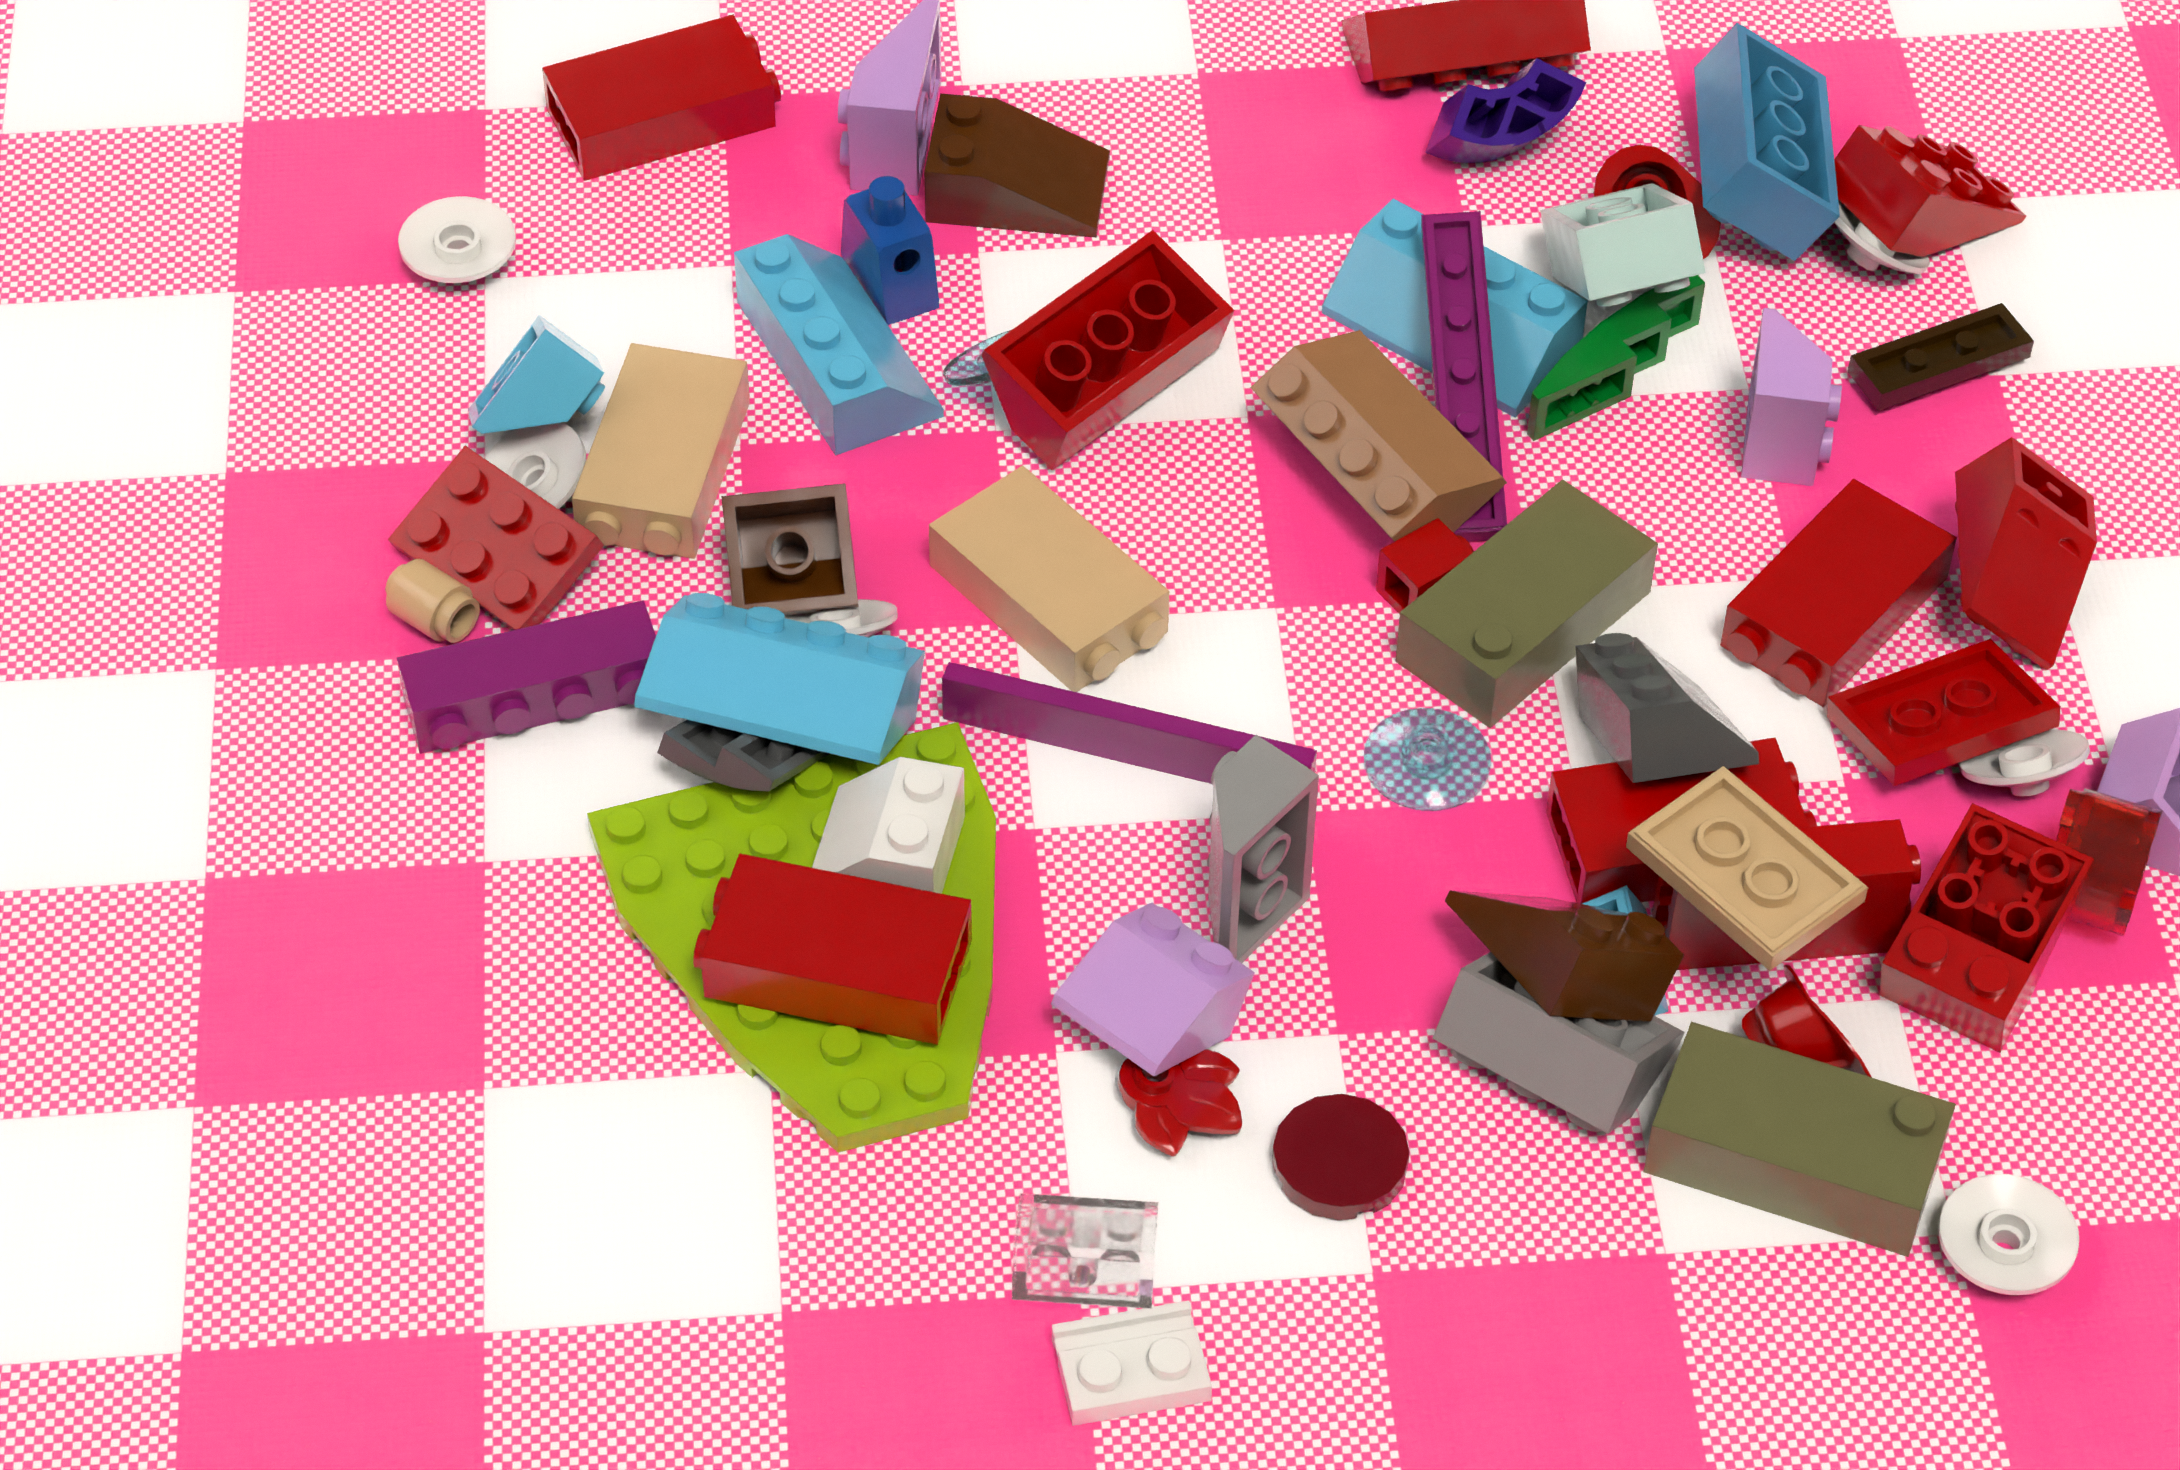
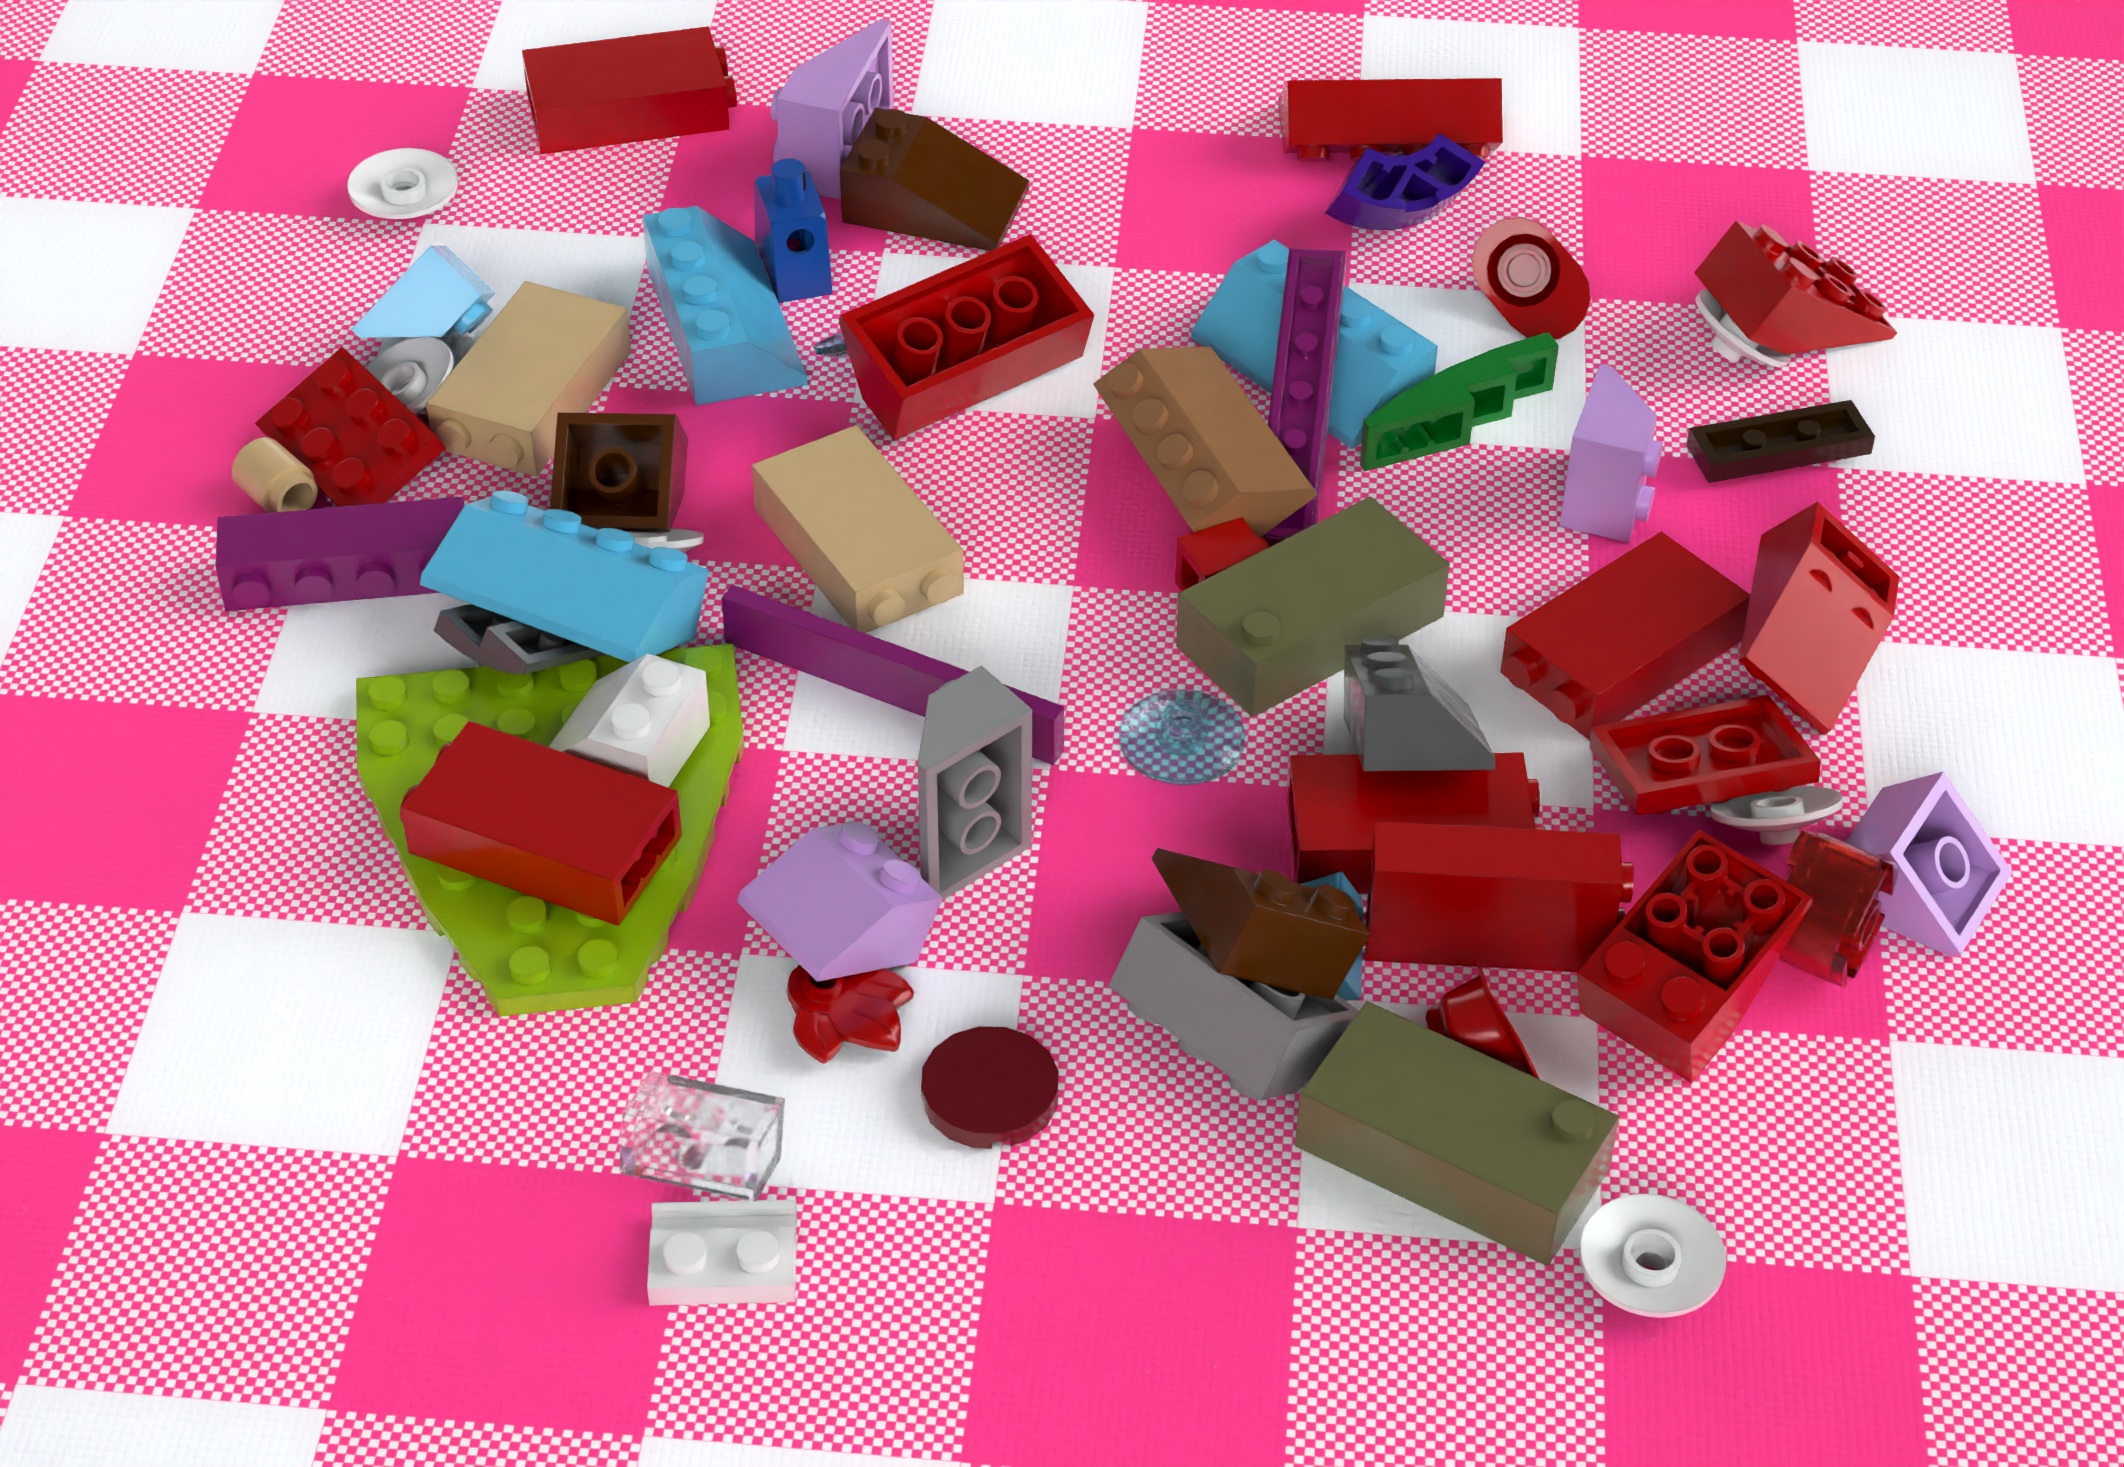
camera: 10 degrees right, 5 degrees down
(1623, 243) = (1482, 298): light aqua brick -> none
(1746, 867) = (1449, 857): tan tile -> none
(1765, 143) = (1646, 232): dark azure brick -> none

